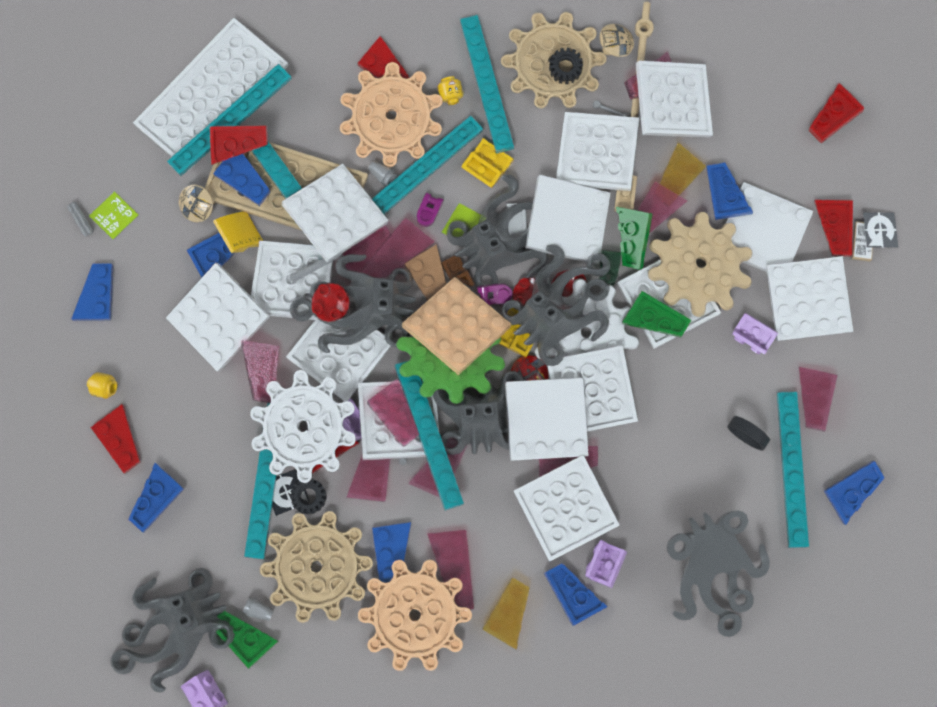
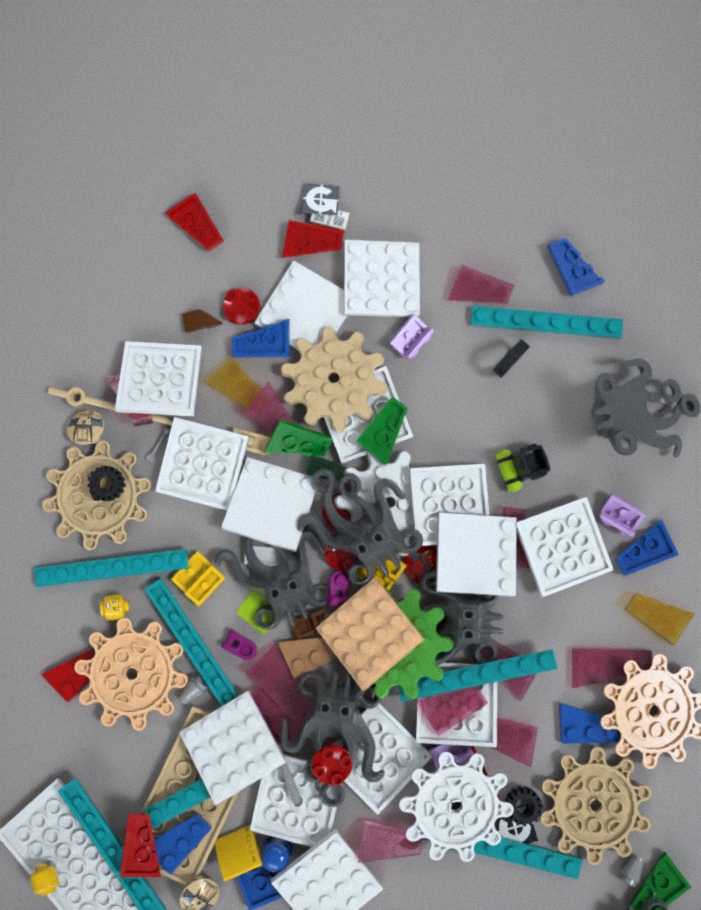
camera: 80 degrees left, 5 degrees up
(198, 64) = (44, 879): none -> yellow head
(239, 266) = (275, 855): none -> blue helmet
(643, 462) = (523, 465): none -> black piece
(737, 129) = (199, 320): none -> reddish brown slope
(758, 167) = (241, 306): none -> red dish

